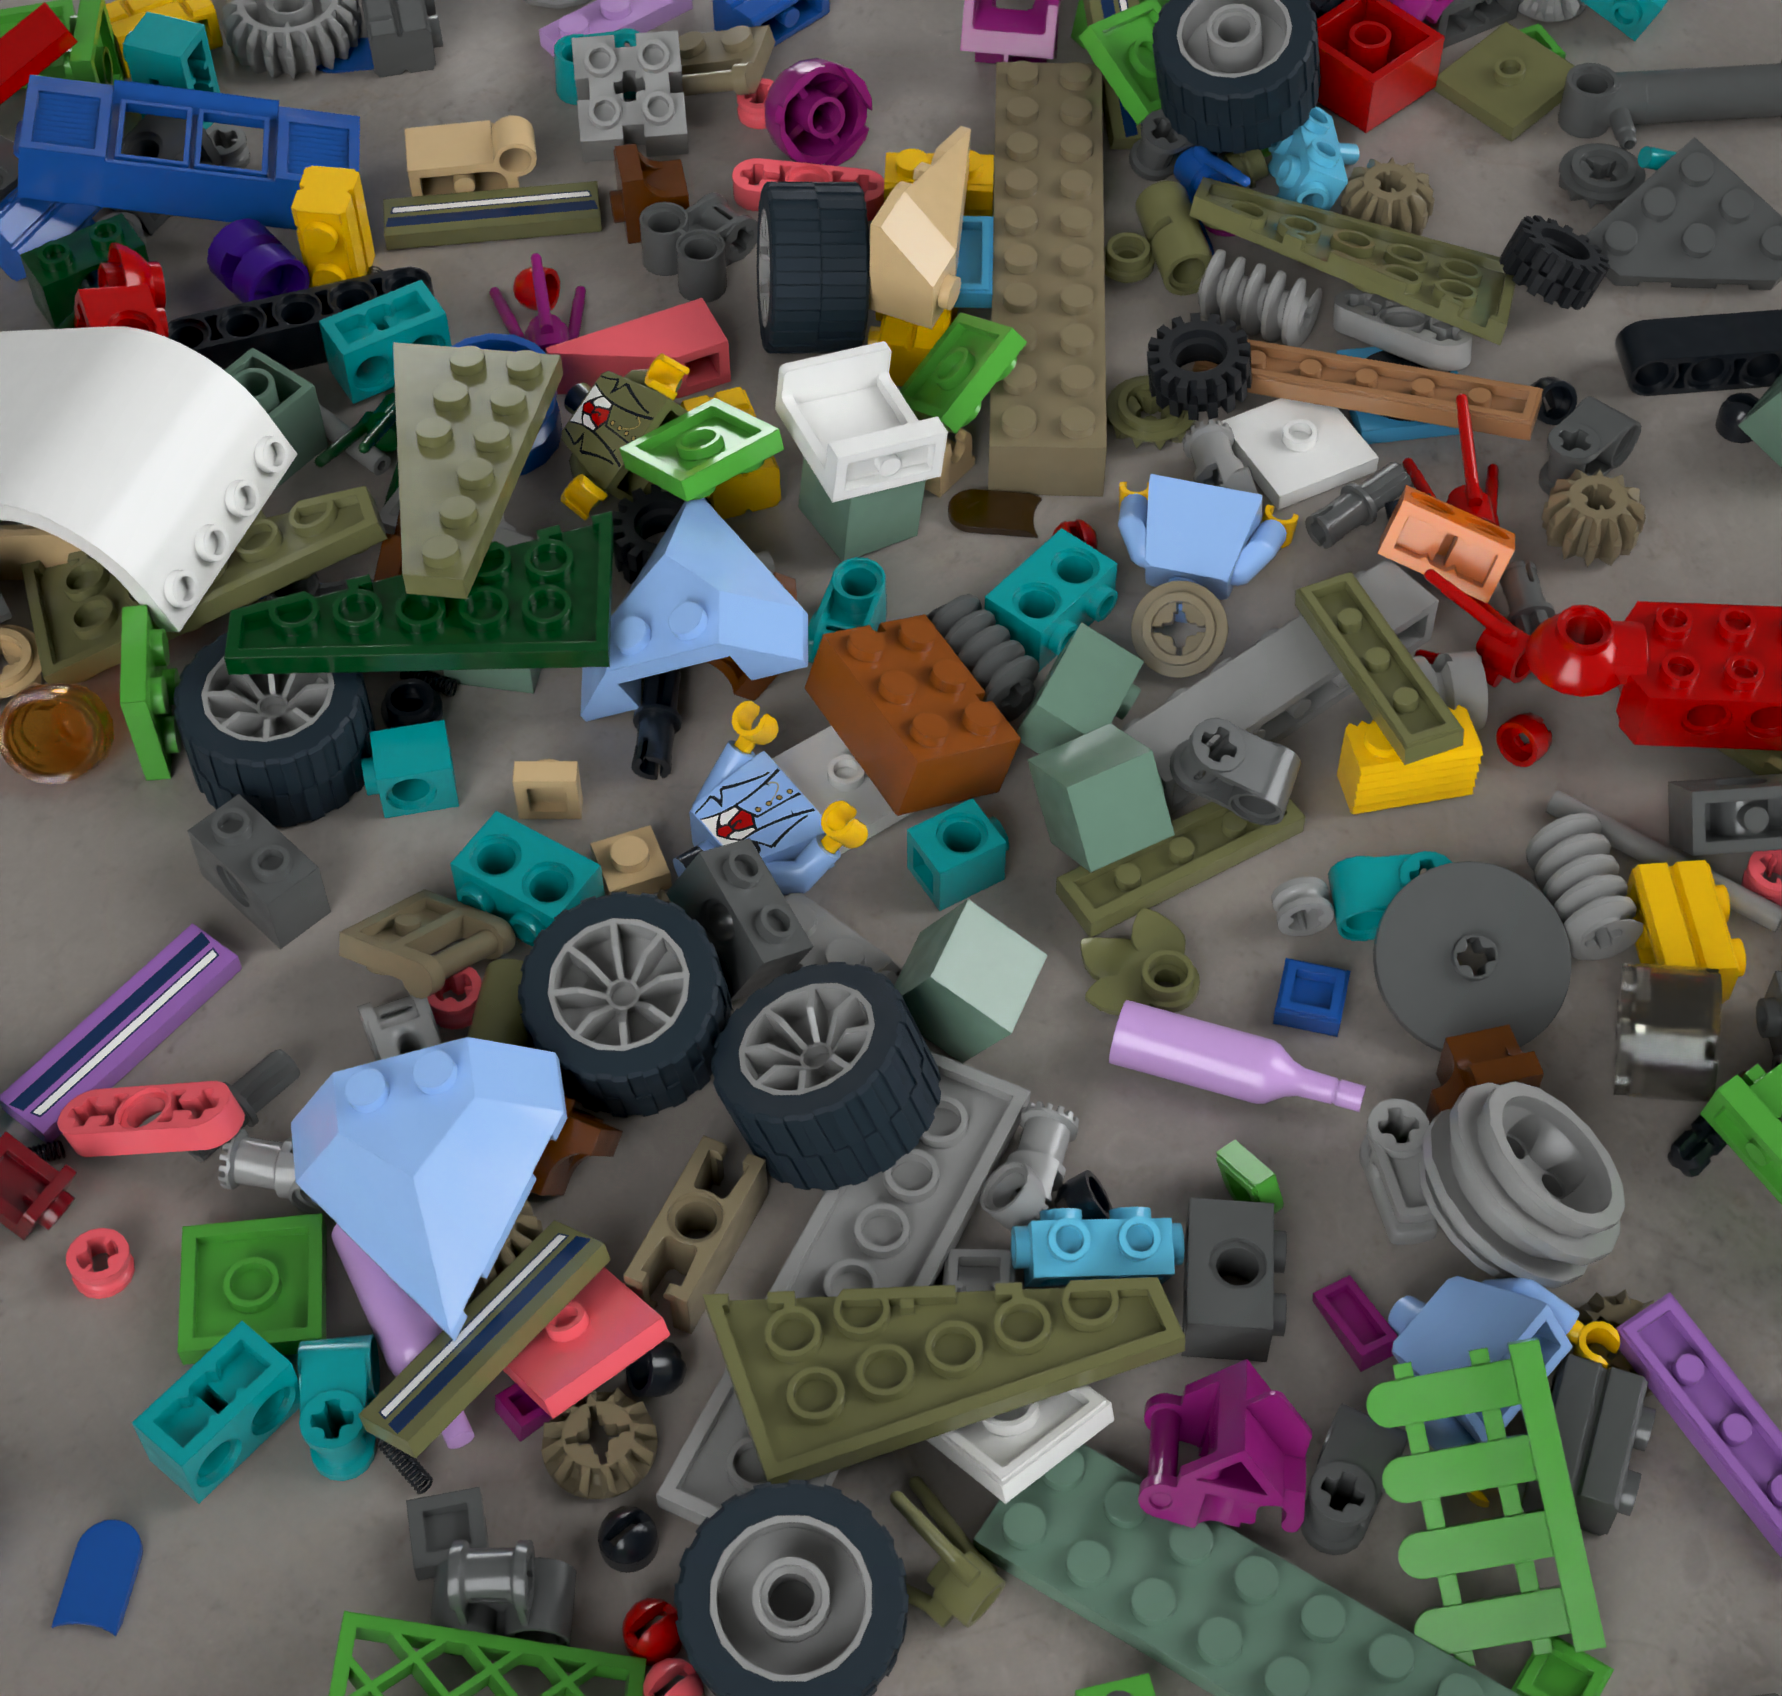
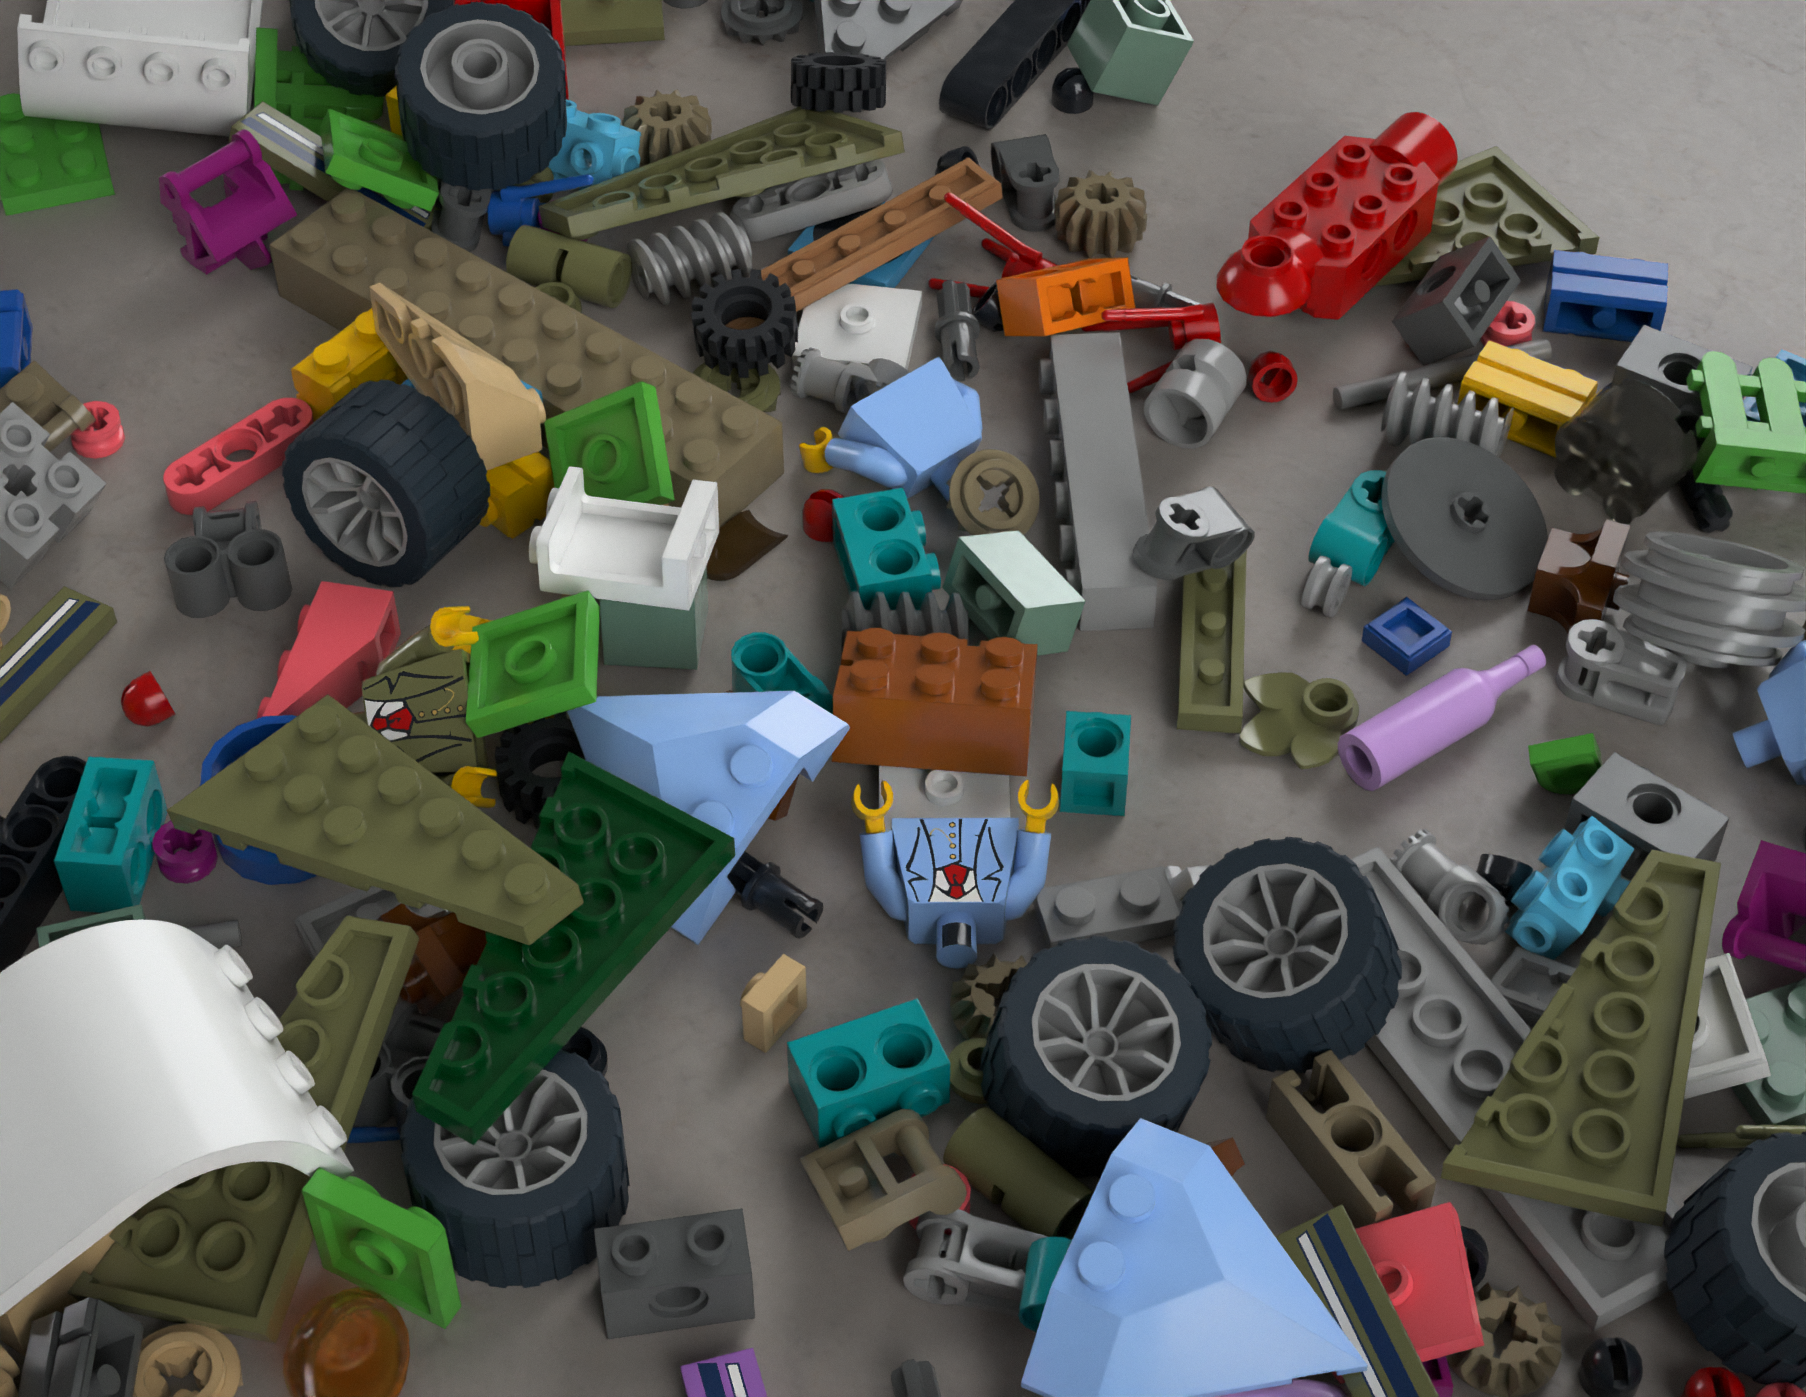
camera: 55 degrees left, 5 degrees down
(380, 432) = (215, 893): dark green plant -> none
(411, 769) = (659, 1090): teal brick -> none
(545, 328) = (213, 722): magenta plant -> none
(632, 862) = (899, 981): tan plate -> none
(643, 184) = (125, 557): reddish brown brick -> none
(742, 916) = (1038, 900): dark grey brick -> none
(818, 112) = (170, 392): magenta cylinder -> none
(968, 980) = (1250, 798): head -> none
(1101, 797) = (1139, 631): sand green head -> none
(1355, 1322) = (1724, 782): magenta piece -> none
(1378, 779) = (1246, 442): yellow brick -> none
(1379, 668) = (1170, 394): olive tile -> none

